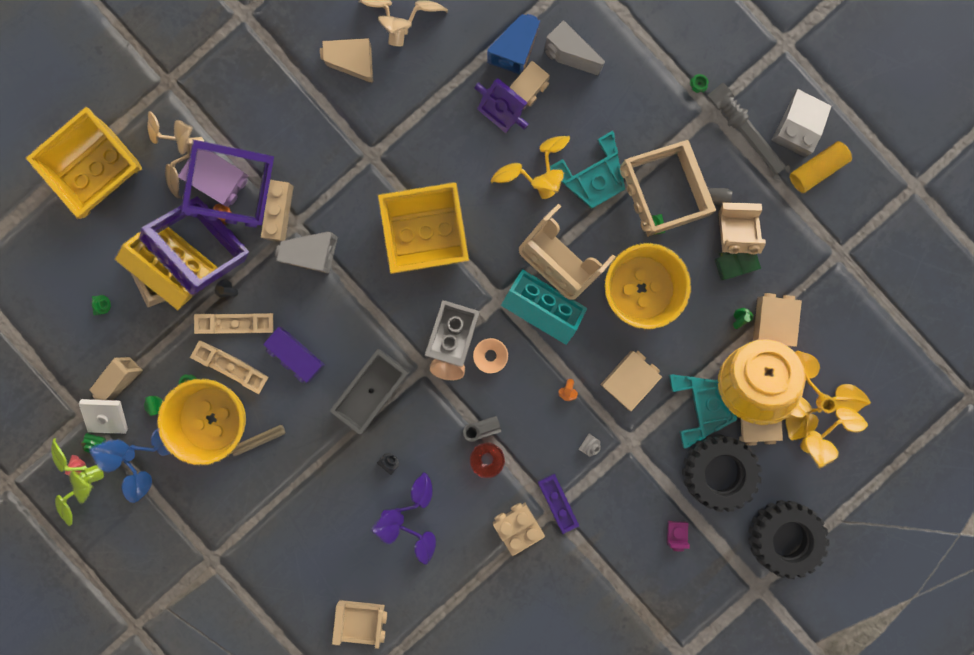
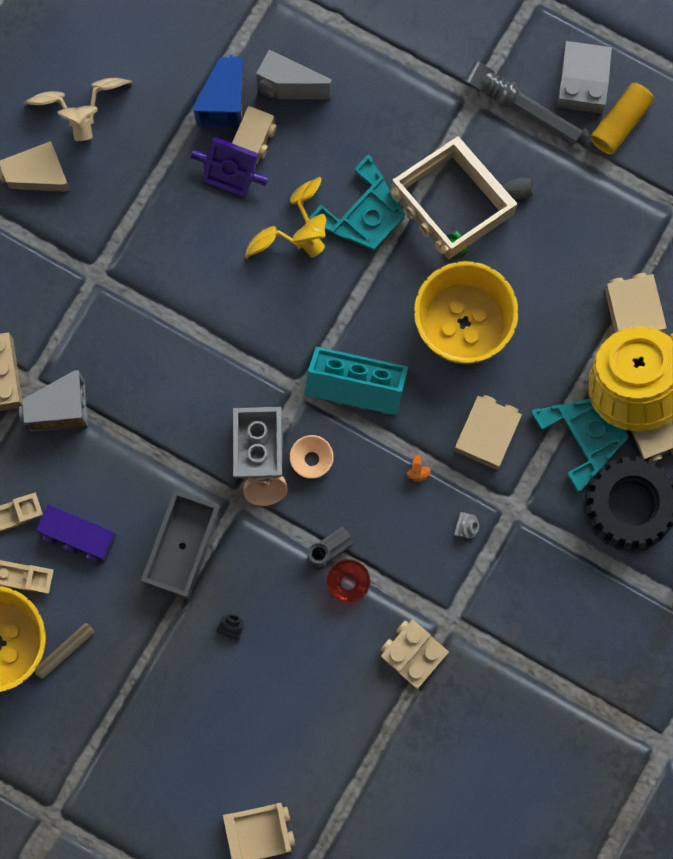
camera: 15 degrees left, 10 degrees down
(391, 521) = (257, 688): dark purple plant -> none
(423, 228) = (184, 330): yellow container -> none
(557, 262) = (354, 324): tan windscreen -> none
(558, 503) = (451, 608): dark purple tile -> none
(677, 535) = (607, 598): magenta bracket -> none
(703, 80) = (446, 66): green plate -> none
(736, 264) = (566, 257): dark green brick -> none
(741, 228) = (554, 215): tan panel -> none
(742, 317) = (593, 316): green plate -> none

